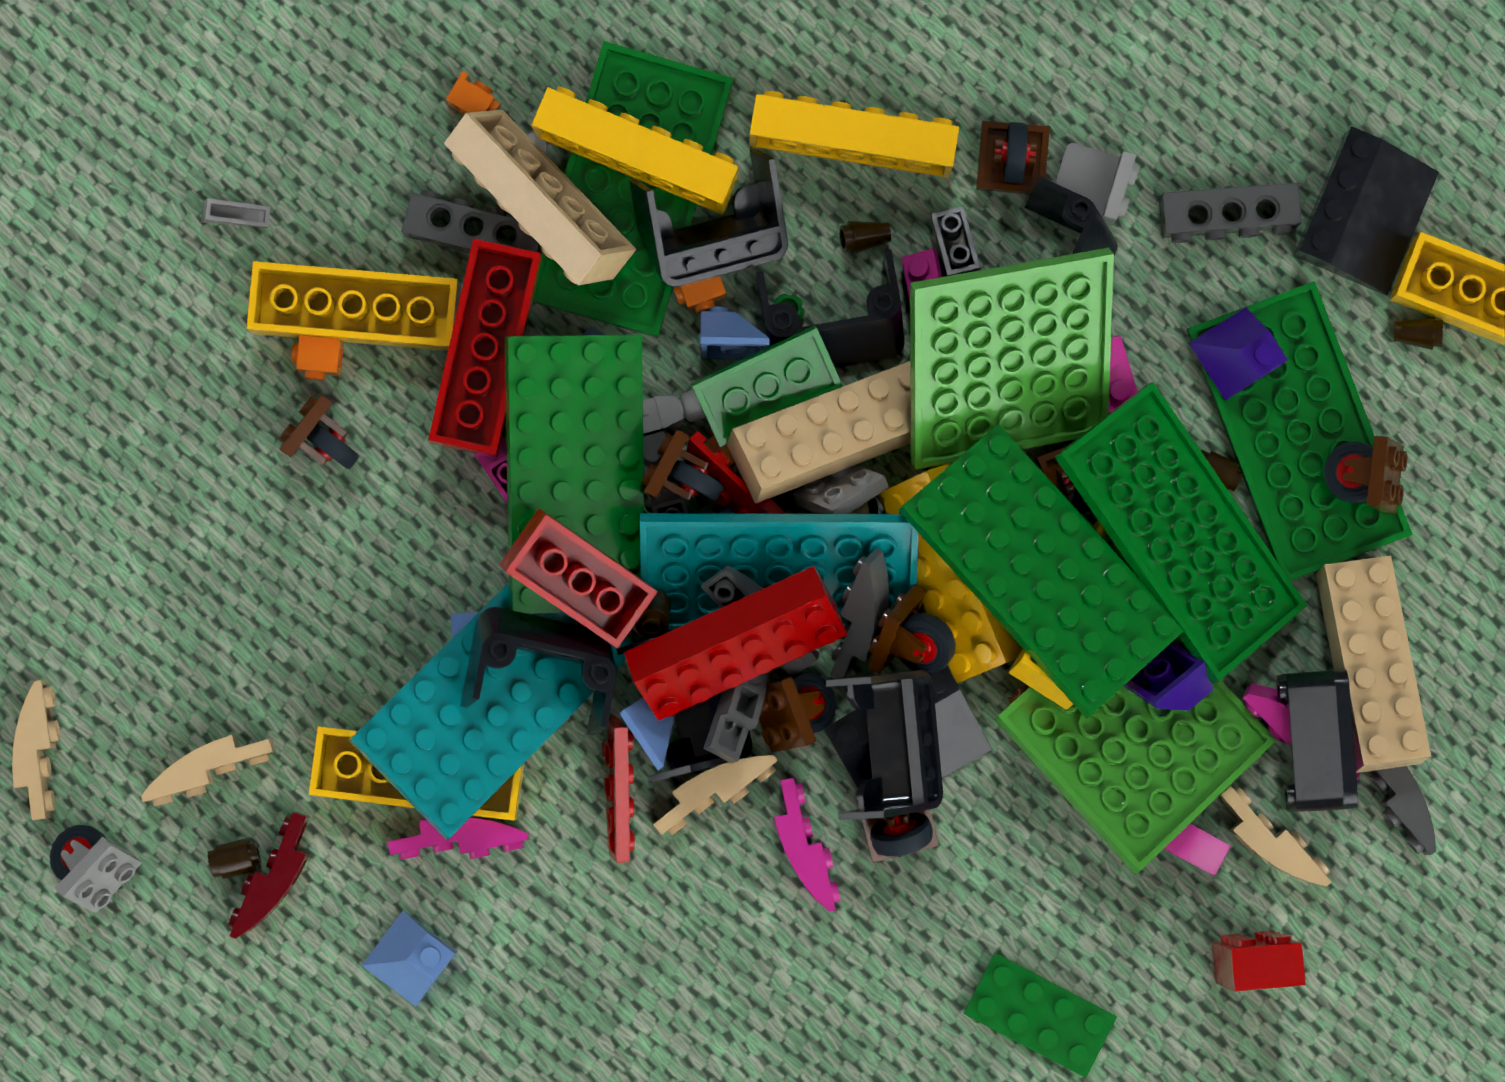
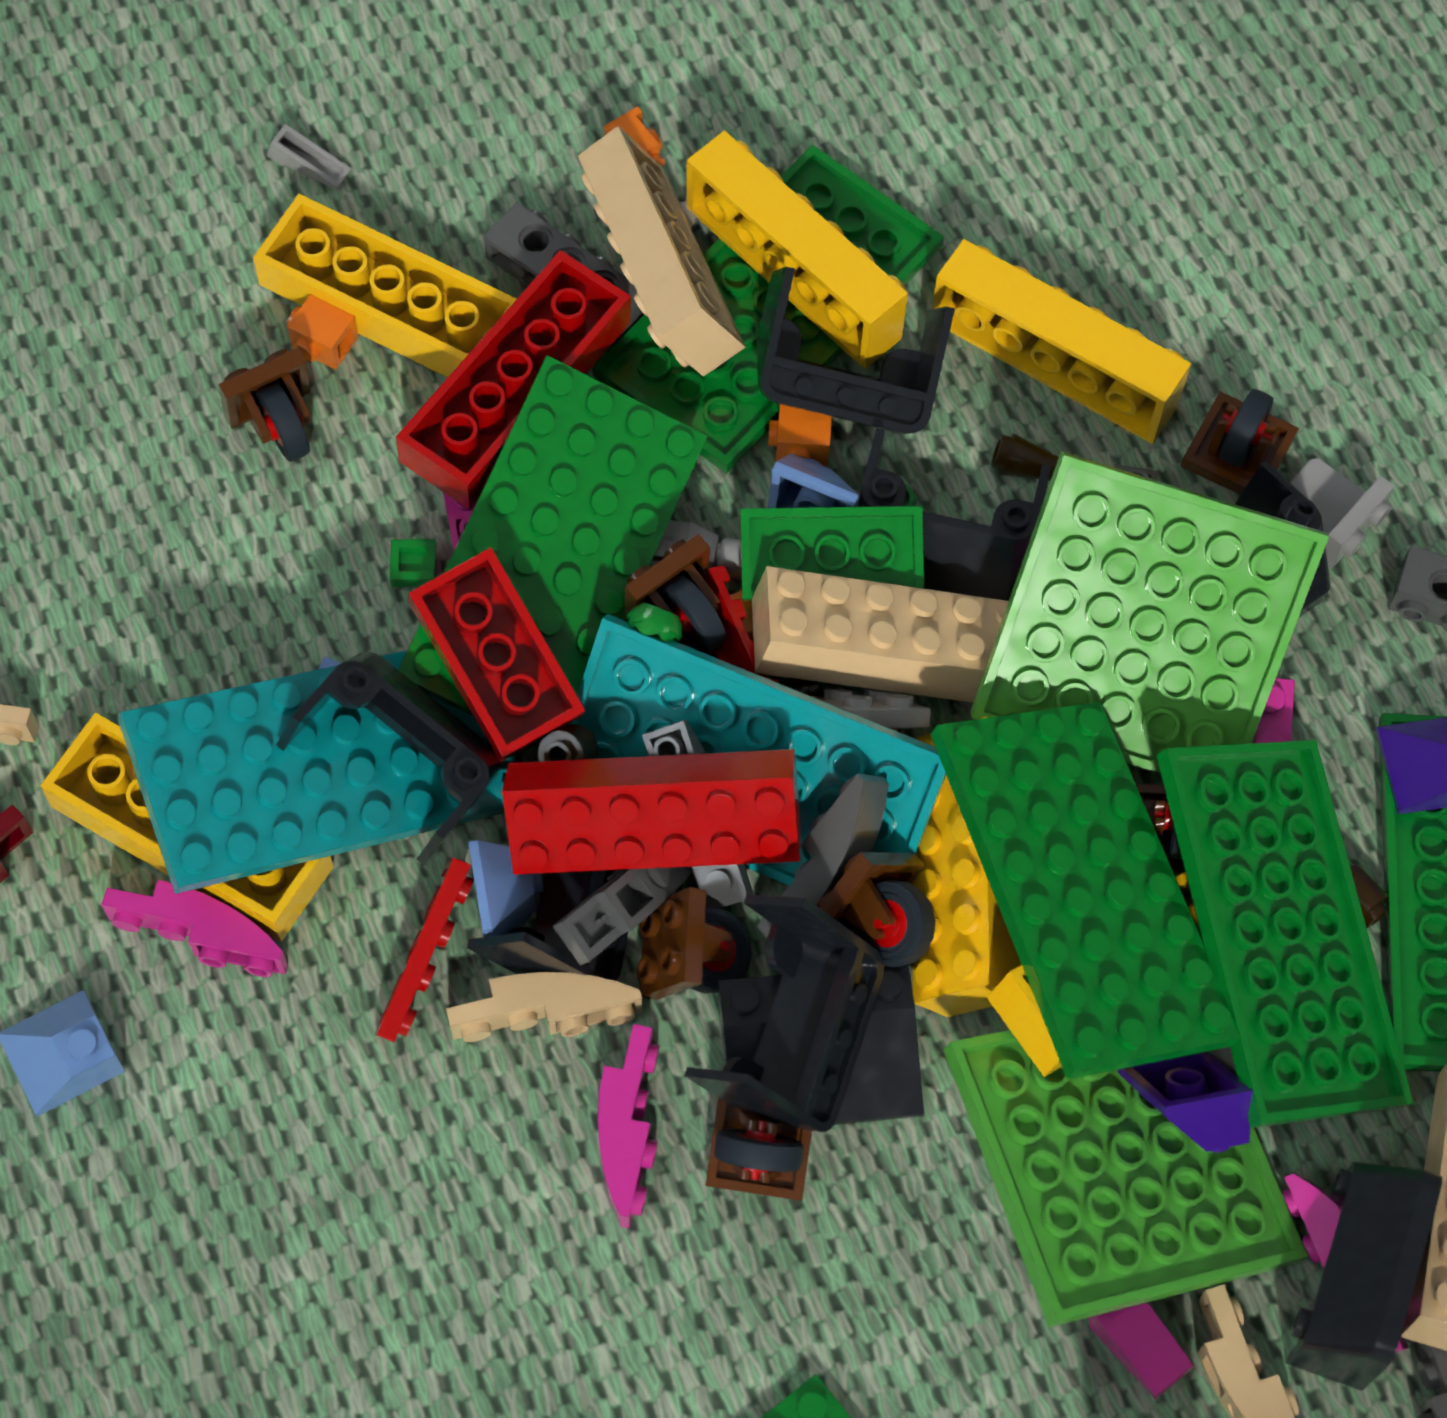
camera: 25 degrees right, 20 degrees down
(472, 507) = (412, 562): none -> green plate
(675, 505) = (655, 621): none -> green plate

